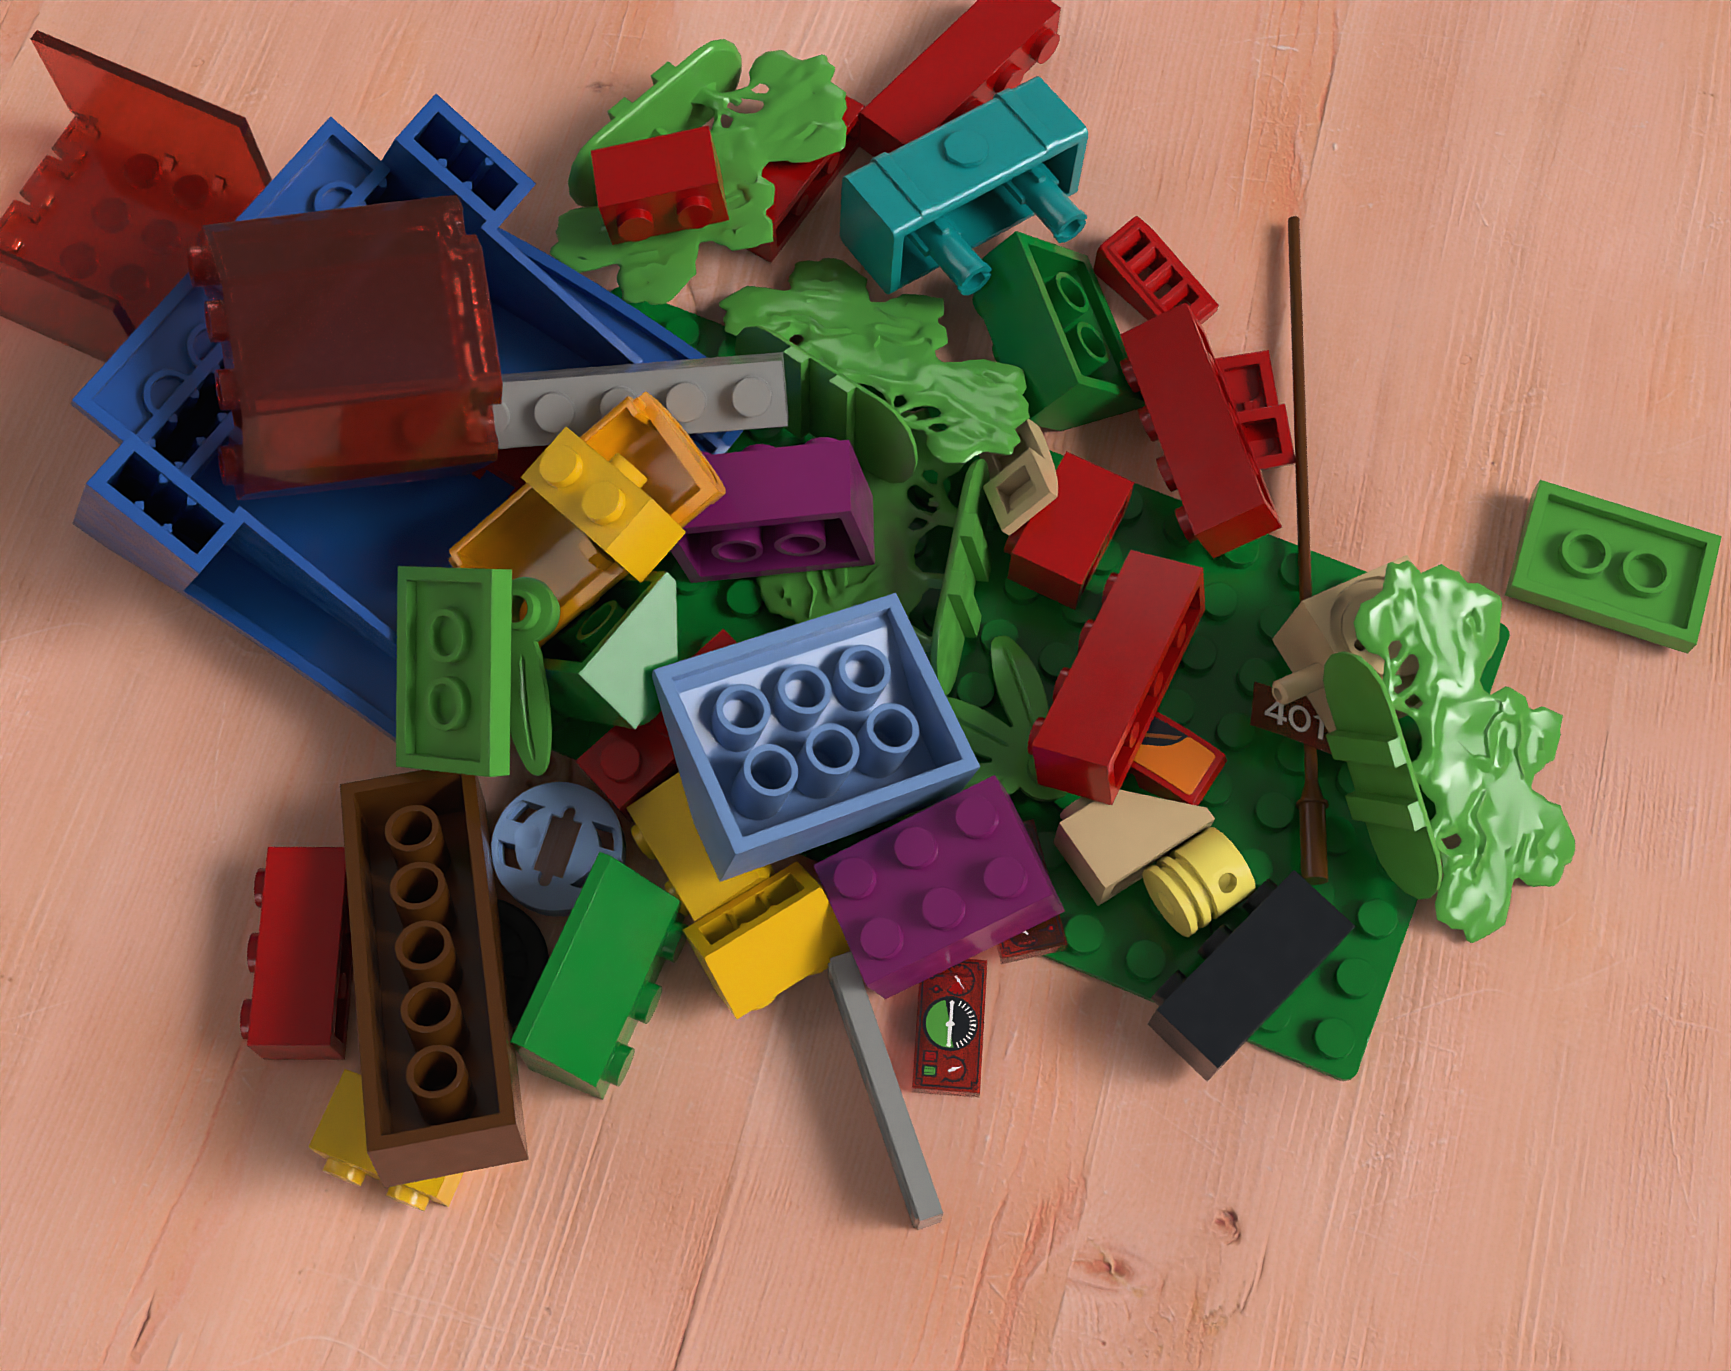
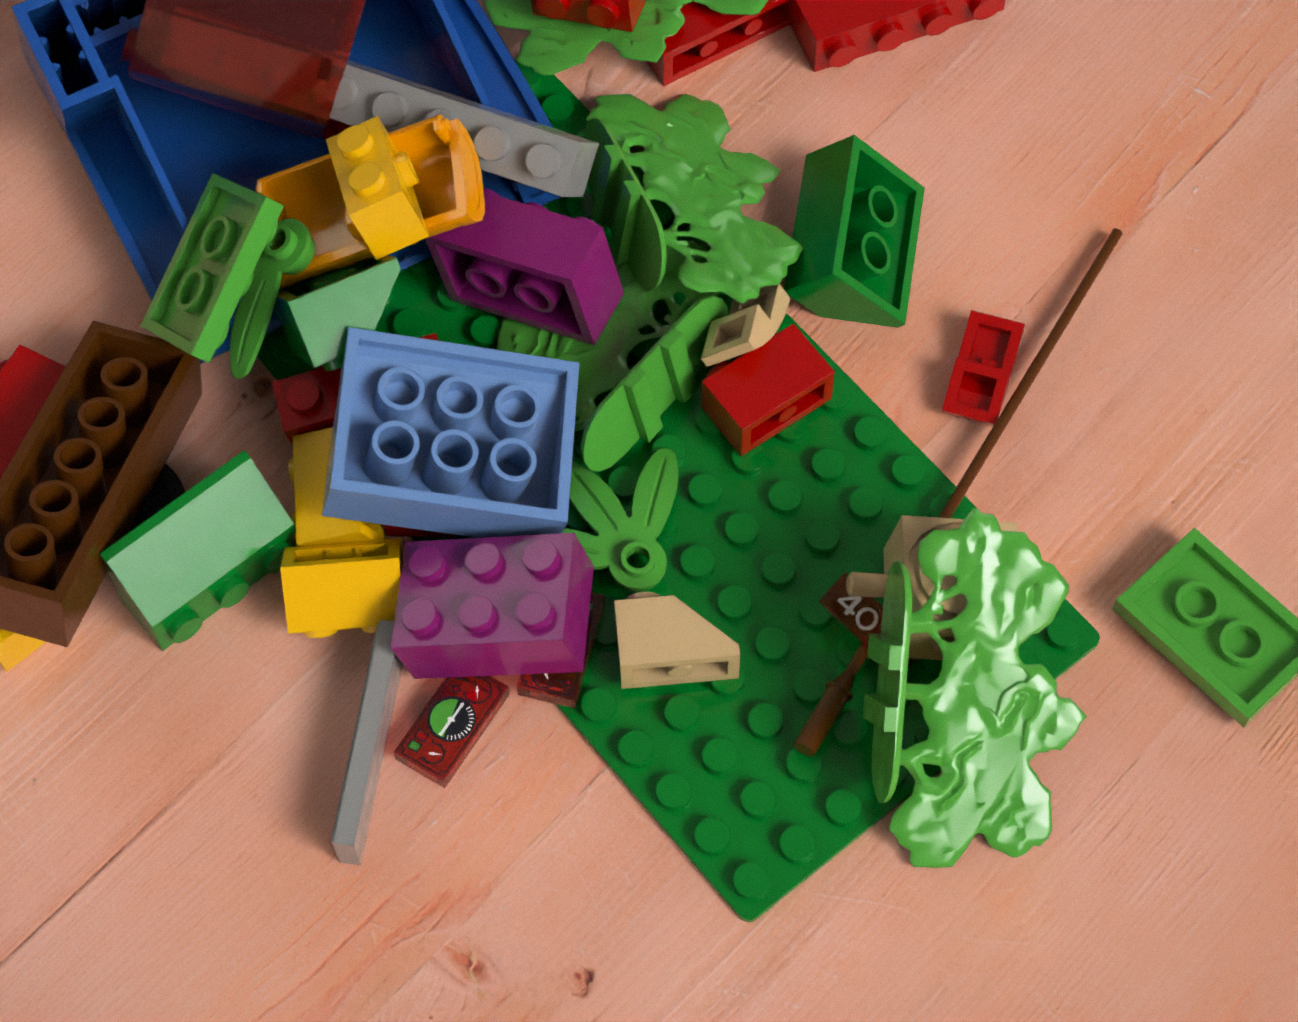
camera: 30 degrees right, 5 degrees down
(527, 839) = (216, 426): light blue piece -> none
(965, 186) = (841, 84): teal piece -> none
(1118, 677) = (730, 513): red brick -> none
(1151, 252) = (958, 197): red slope -> none
(1176, 762) = (732, 586): slope -> none
(1198, 431) = (919, 359): red brick -> none
(1199, 881) = (691, 699): light yellow piece -> none
(1247, 972) = (703, 790): black brick -> none

